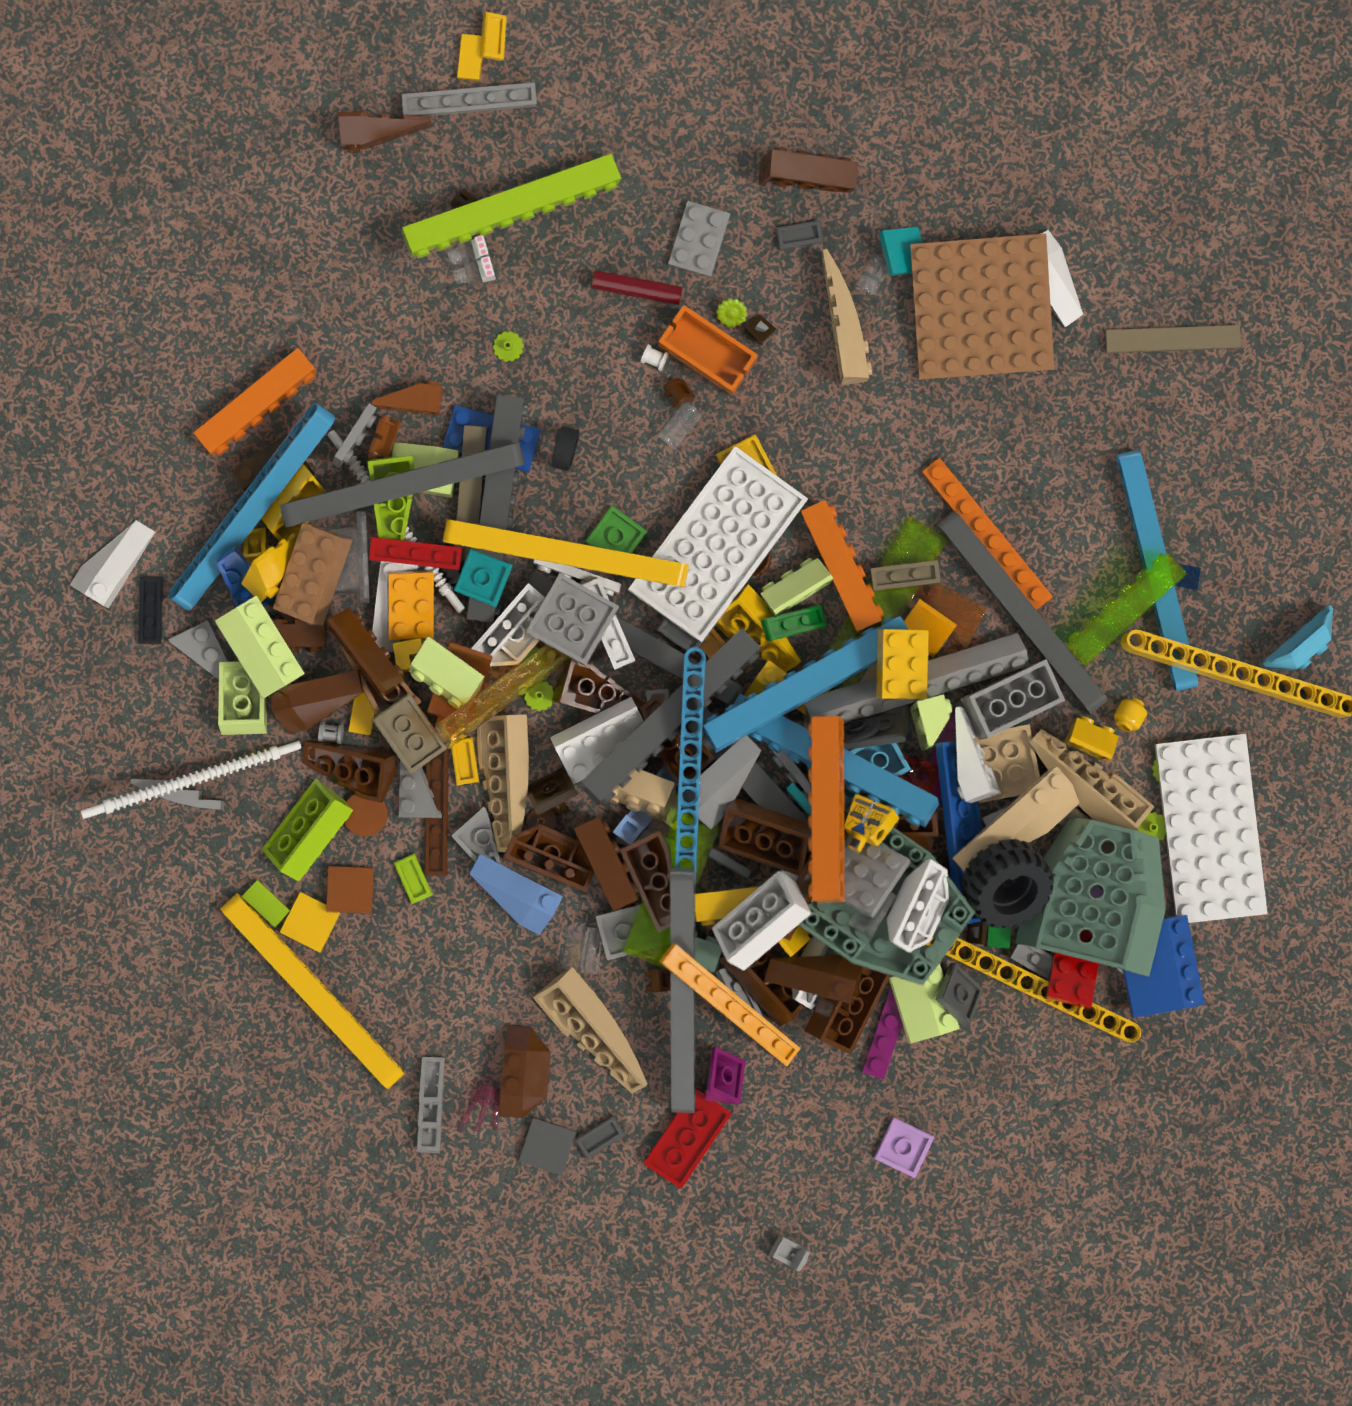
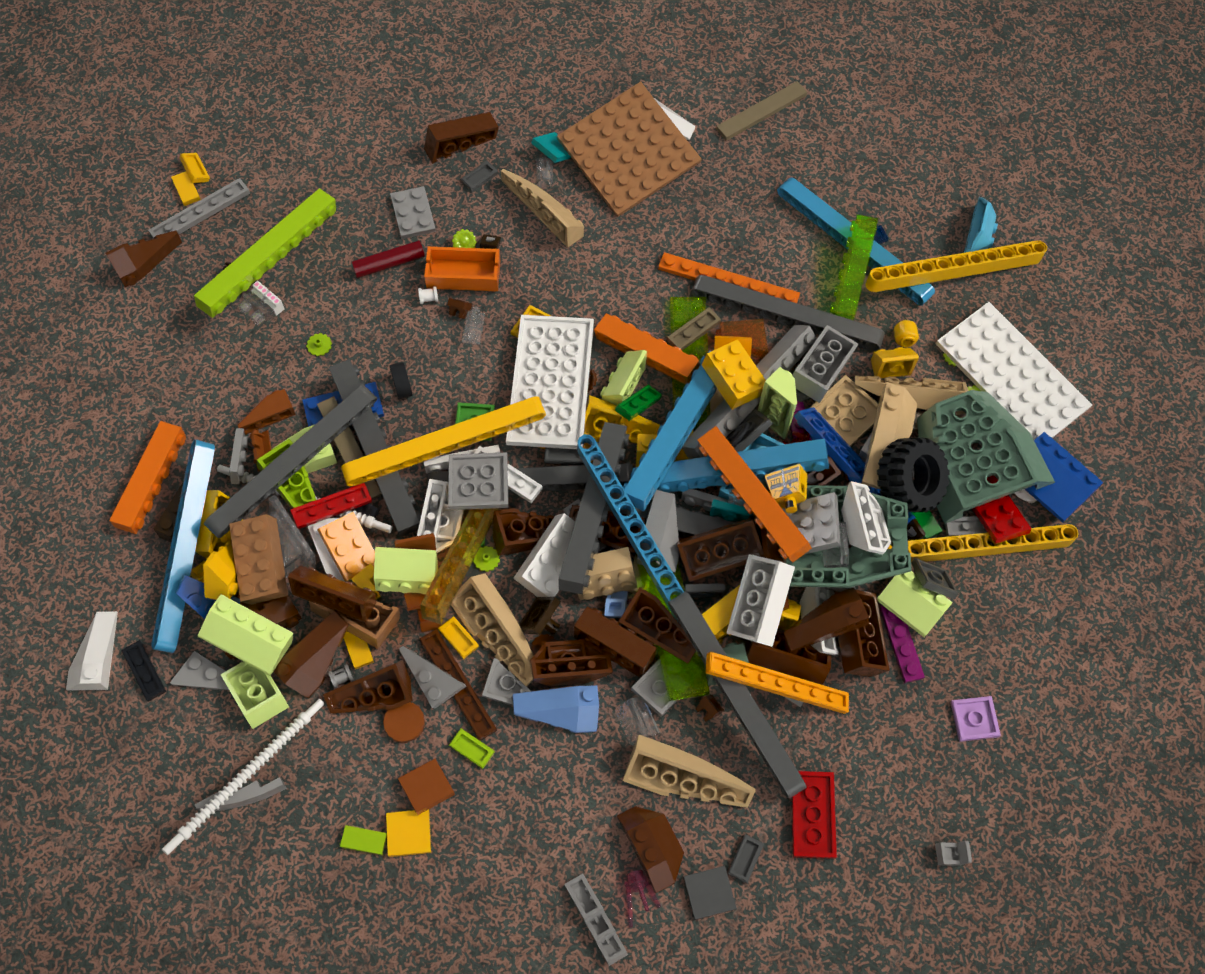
camera: 35 degrees left, 20 degrees down
(307, 830) = (364, 759): lime slope -> none
(312, 991) = (443, 886): yellow beam -> none
(409, 733) = (403, 635): dark tan tile -> none
(483, 578) = (393, 494): teal tile -> none
(724, 1077) = (808, 748): magenta slope -> none
(974, 776) = (837, 422): white wedge -> none

